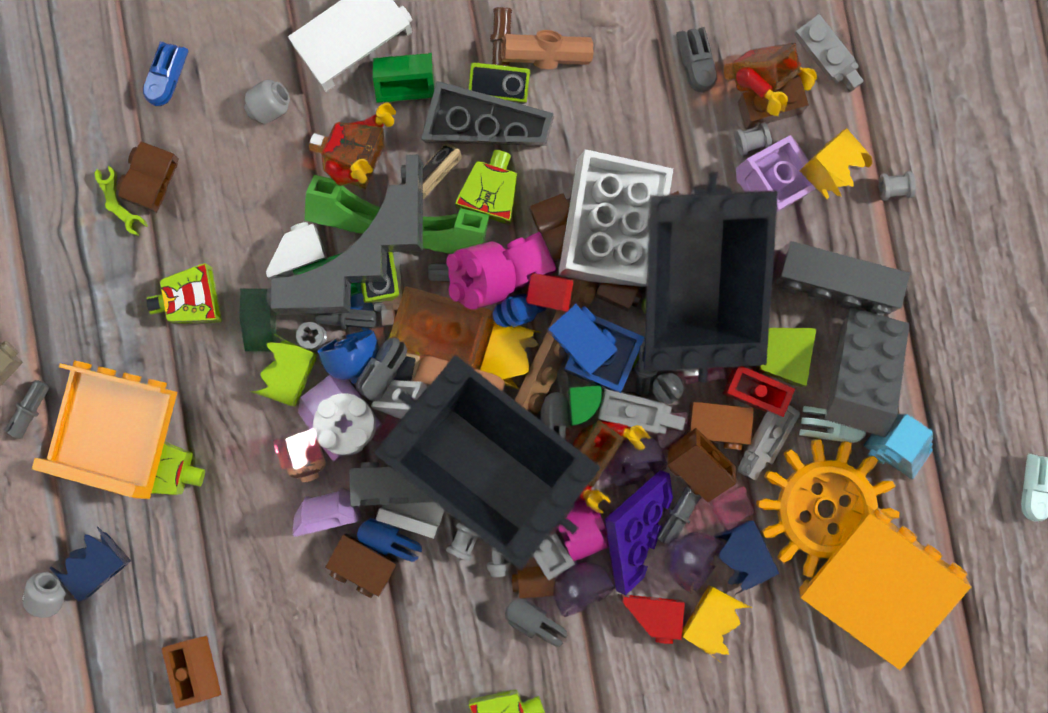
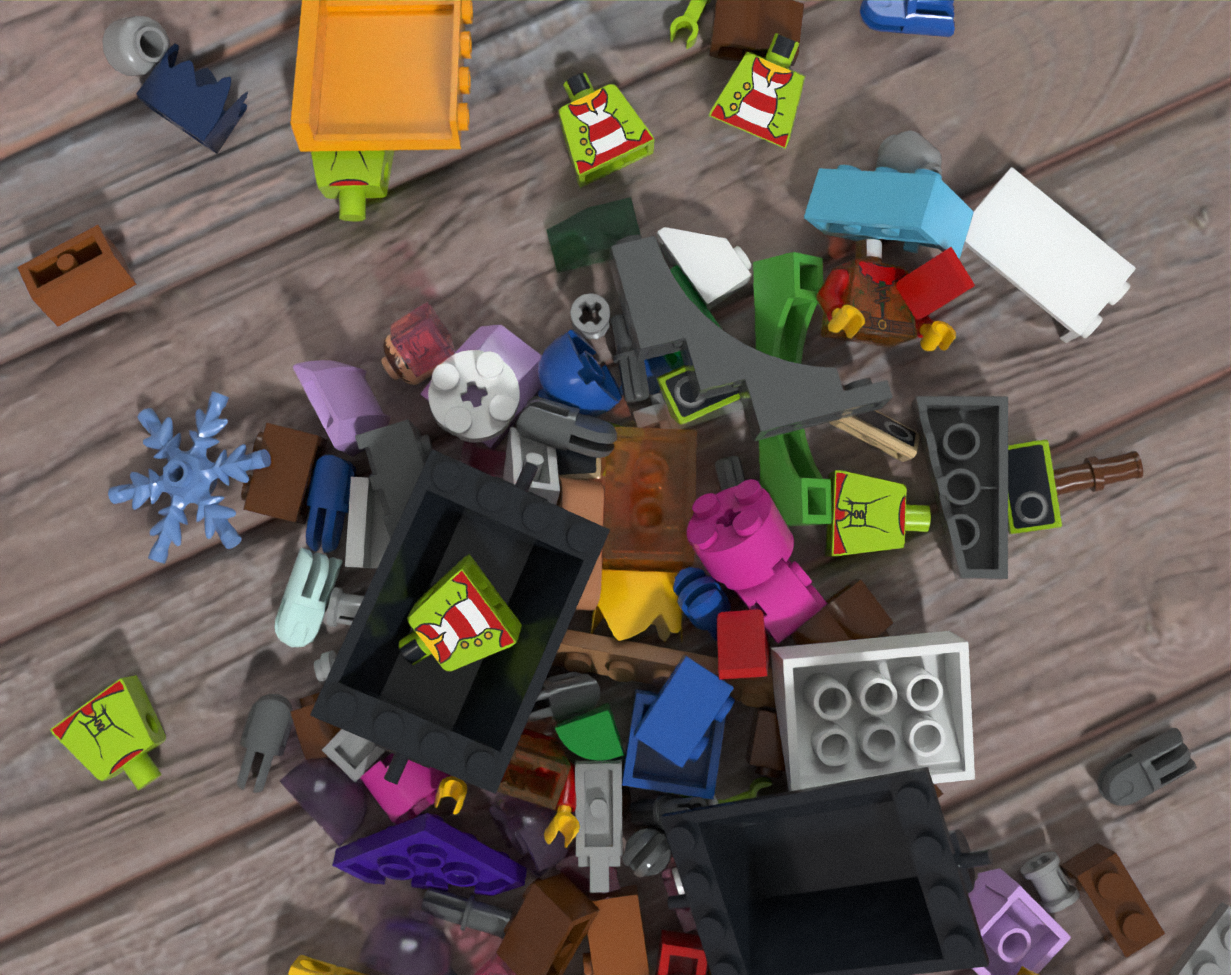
camera: 75 degrees right, 0 degrees up
(194, 183) = (763, 93): none -> torso
(288, 373) = (530, 297): lime piece -> none
(293, 122) = (890, 207): none -> medium azure wedge
(347, 628) = (189, 477): none -> medium blue piece
(351, 107) = (934, 284): none -> red slope
(403, 77) = (997, 348): green brick -> none
(447, 571) = (306, 598): none -> light aqua arm
(487, 465) = (460, 620): none -> torso
(547, 49) = (1098, 544): nougat piece -> none
(658, 616) = (316, 919): red slope -> none
(768, 70) = (1158, 882): torso -> none

